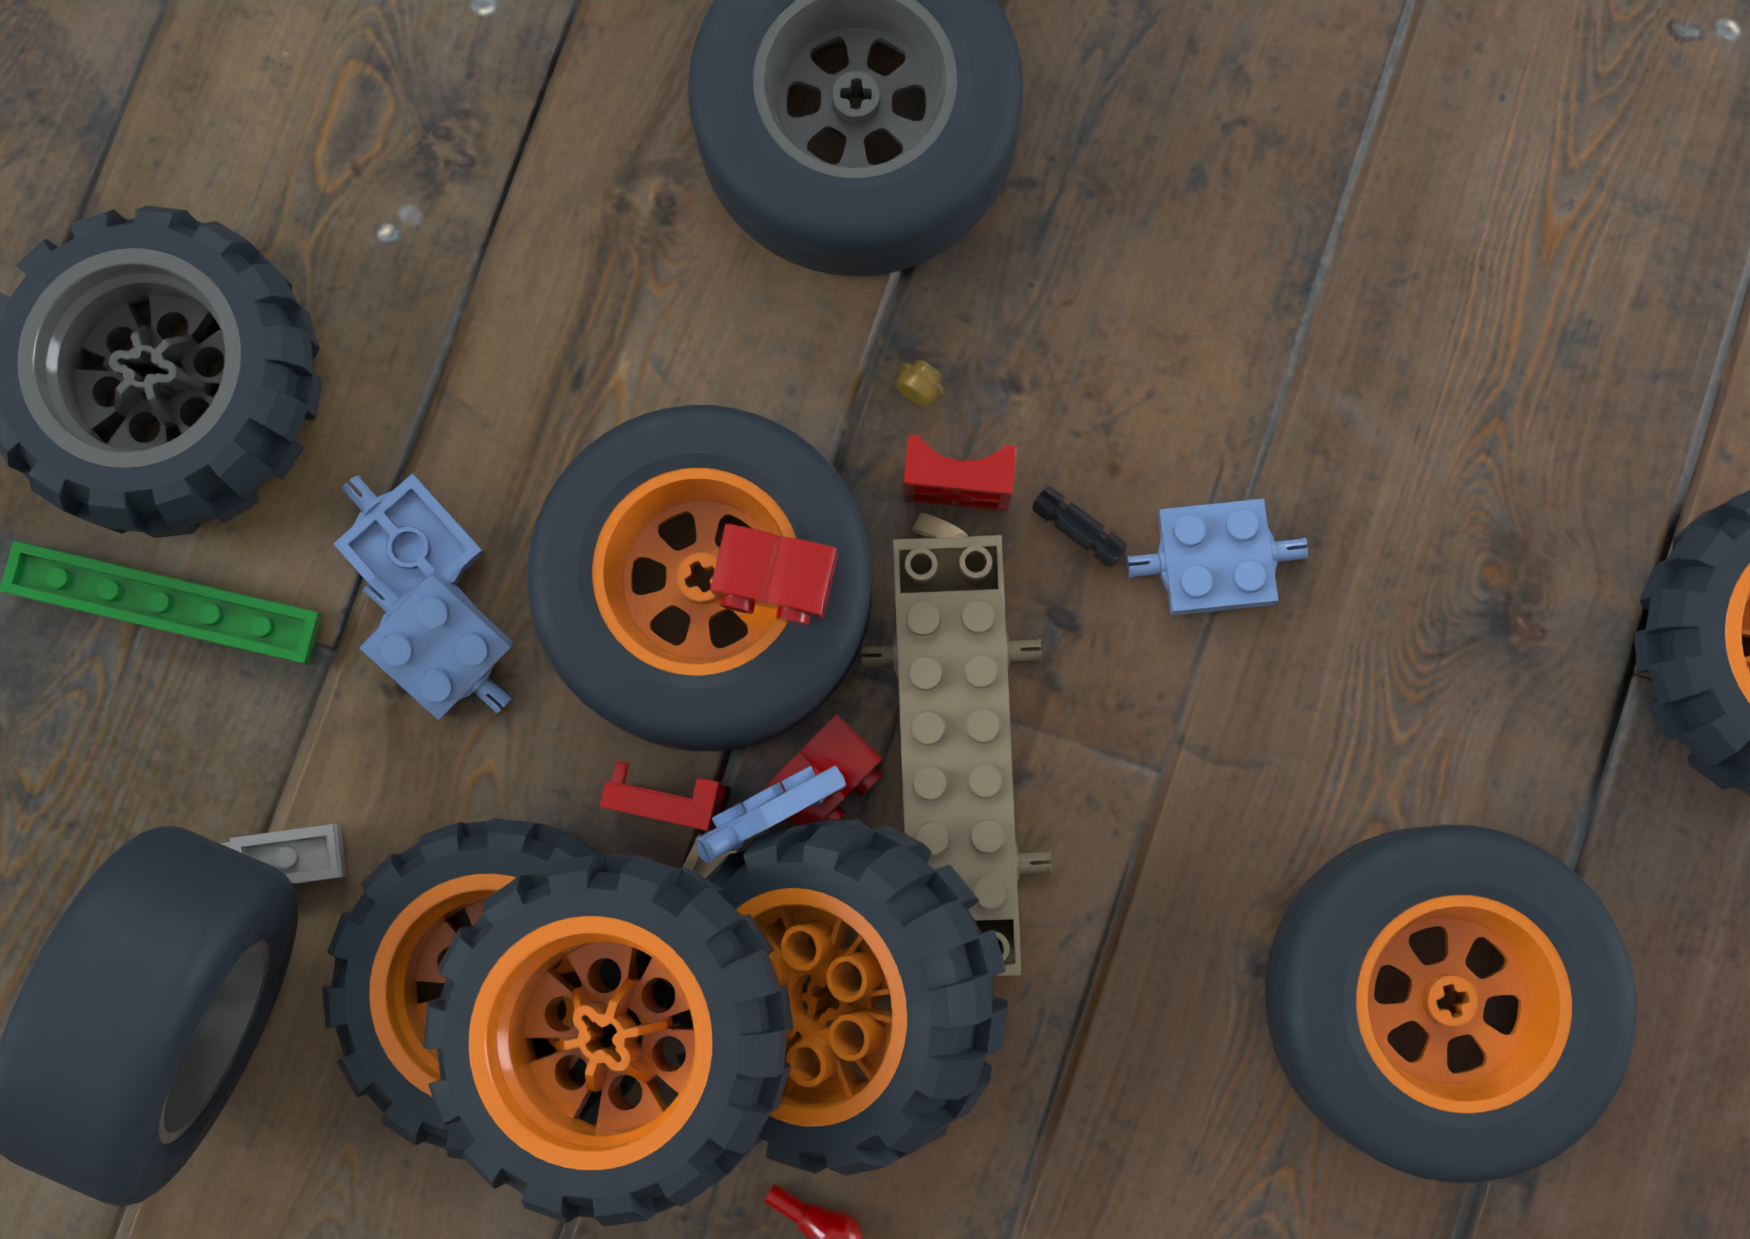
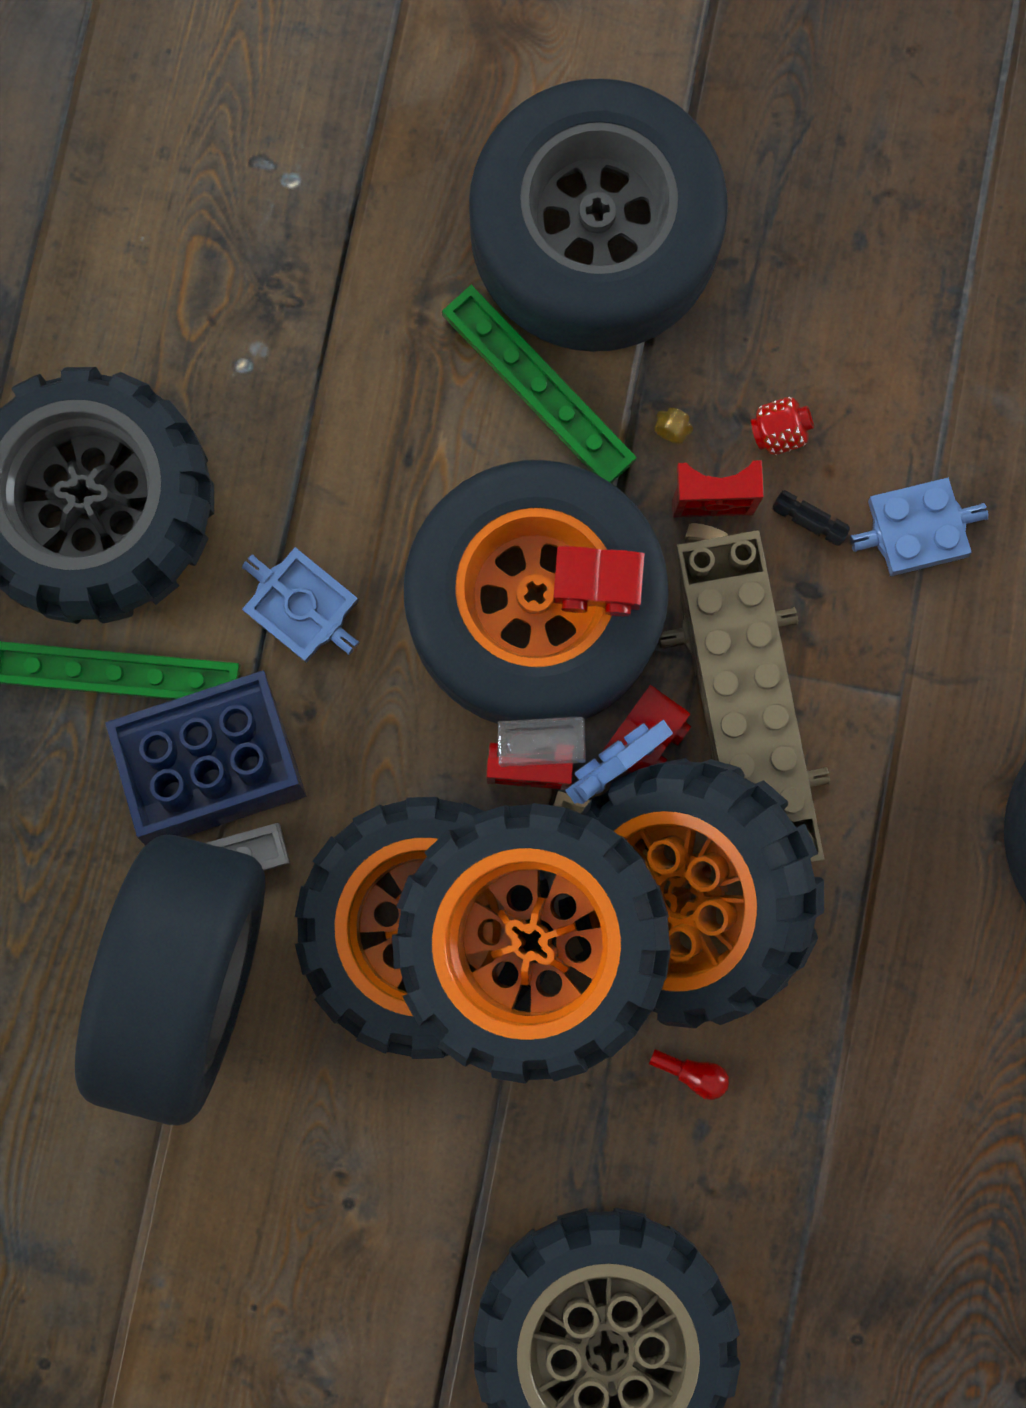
camera: 15 degrees left, 0 degrees up
(254, 730) = (205, 759): none -> dark blue slope
(436, 644) = (334, 675): medium blue plate -> none
(675, 771) = (541, 741): none -> clear plate
(755, 309) = (538, 385): none -> green plate
(1057, 403) = (782, 425): none -> red head

